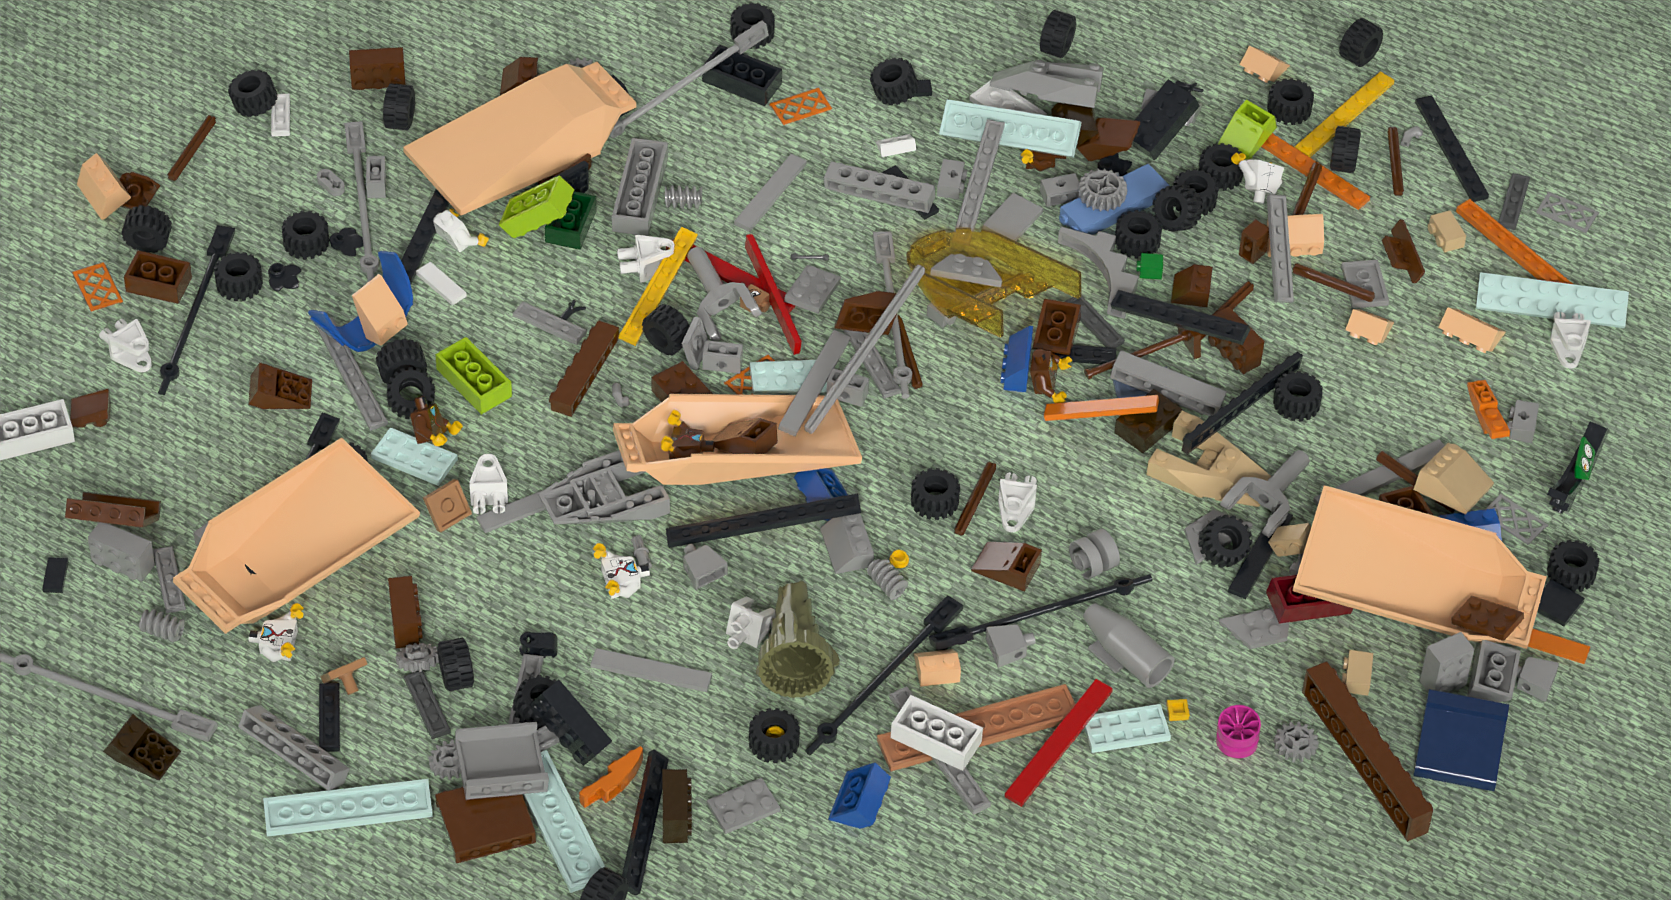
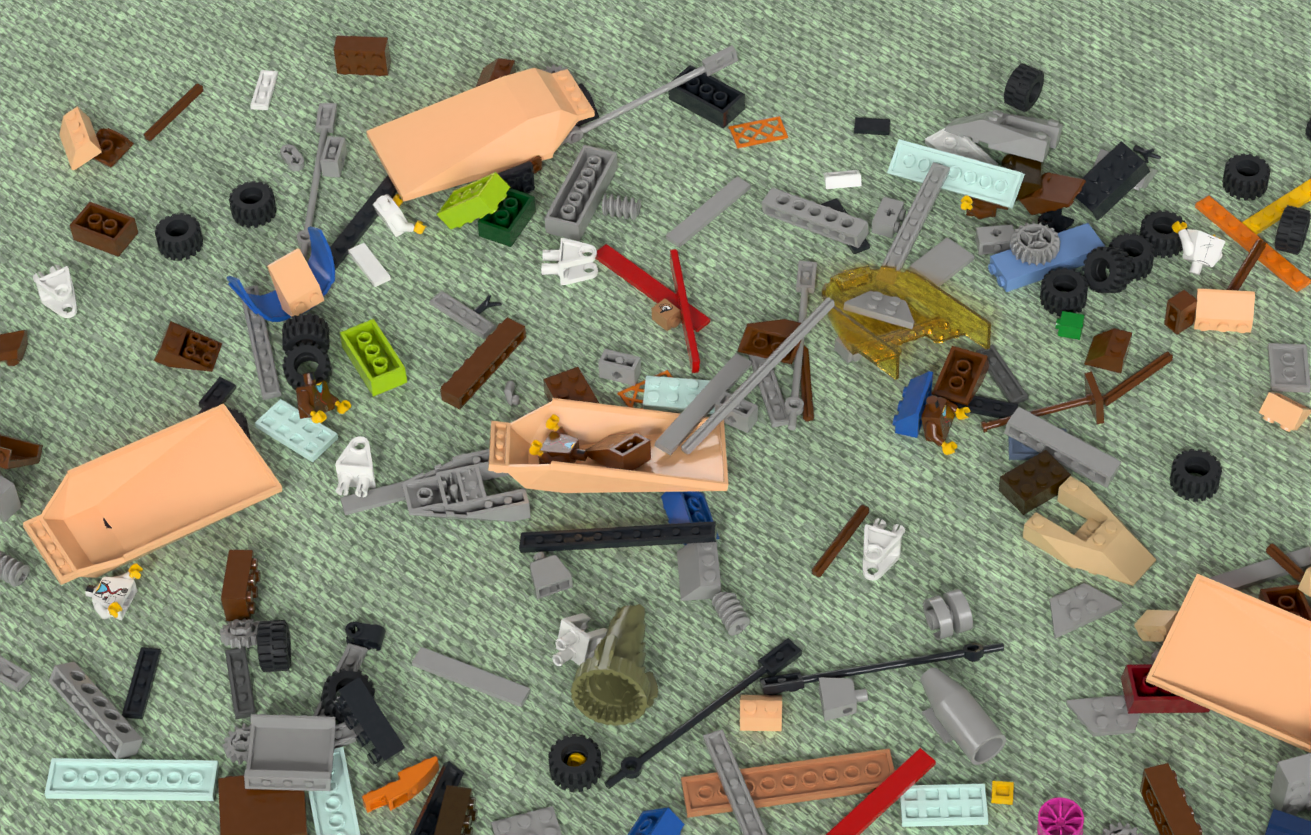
camera: 15 degrees right, 0 degrees up
(88, 297) = (51, 246): orange window -> none
(146, 229) = (105, 182): black tyre -> none
(166, 570) = (30, 508): light grey tile -> none
(217, 248) = (172, 205): black bar -> none
(252, 93) = (241, 67): black tyre -> none
(284, 278) = (222, 241): black plate -> none
(345, 674) = (166, 641): medium nougat tile -> none
(346, 241) = (291, 214): black plate -> none
(398, 106) = (371, 93): black tyre -> none
(447, 505) = (312, 483): medium nougat tile -> none
(620, 572) = (464, 572): white torso -> none
(641, 551) = (491, 554): light grey axle -> none
(658, 286) = (574, 291): yellow plate -> none
(665, 329) = (570, 334): black tyre -> none
(694, 343) = (592, 349): light grey tile -> none
(718, 294) = (630, 306): light grey piece -> none
(748, 15) = (726, 38): black tyre -> none
(794, 256) = (717, 276): dark grey hinge -> none
(812, 289) = (726, 310): light grey plate -> none
(894, 81) = (852, 117): black tyre -> none
(899, 559) = (748, 594): yellow plate -> none
(935, 505) = (799, 543): black tyre -> none
(936, 732) = (738, 784): white brick -> none
(1009, 563) = (859, 613): reddish brown slope -> none
(1102, 407) = (987, 463): orange tile -> none
(1111, 264) = (1031, 319): light grey arch -> none
(1180, 317) = (1086, 380): black plate -> none
(1215, 551) = (1099, 607): black tyre -> none
(1239, 404) = (1130, 477): black plate -> none
(1245, 356) = (1141, 410): reddish brown brick -> none
(1249, 129) = (1197, 199): lime slope -> none
(1254, 564) = (1121, 638): black tile -> none
(1263, 64) = (1225, 137): light nougat slope -> none
(1270, 492) = (1145, 572): light grey piece -> none
(1280, 248) = (1204, 322): light grey tile -> none
(1333, 282) = (1256, 363): reddish brown axle -> none
(1358, 672) = (1203, 777): tan brick -> none

